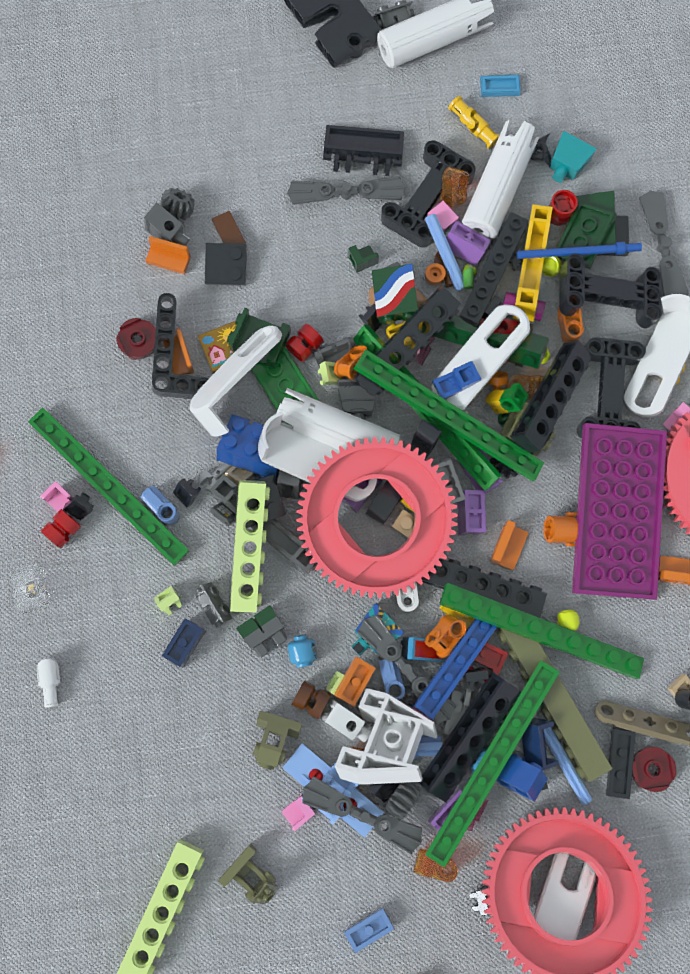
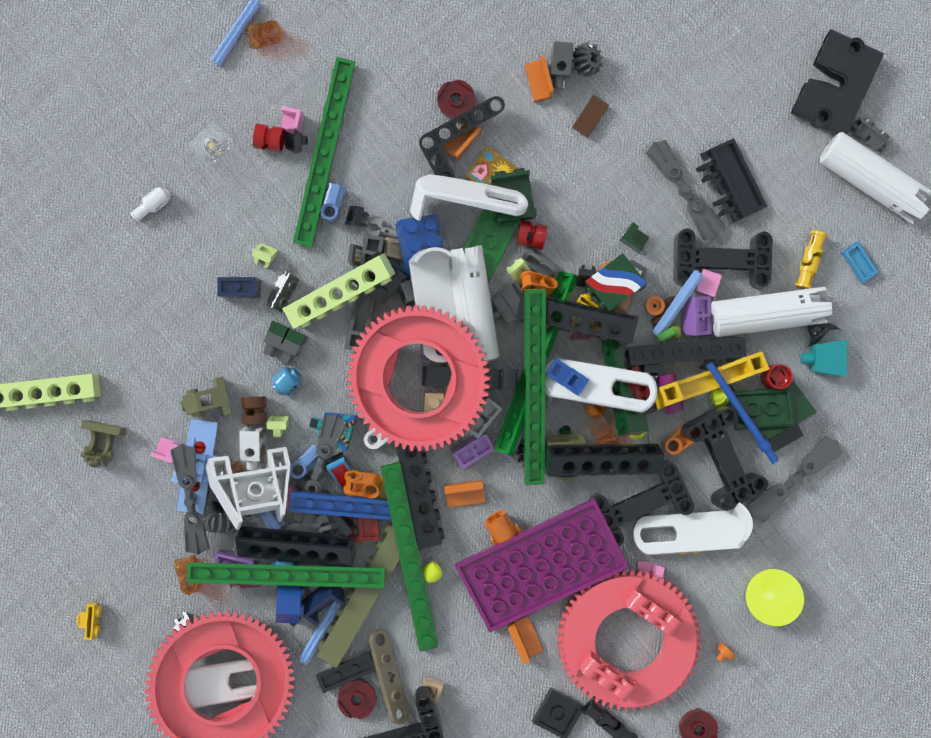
camera: 65 degrees right, 10 degrees up
(225, 264) = (560, 130): black plate -> none
(354, 681) = (286, 435): orange panel -> none
(368, 930) = (115, 551): medium blue plate -> none
(454, 184) = (739, 277): clear orange piece -> none
(508, 399) = (580, 426): green leg -> none

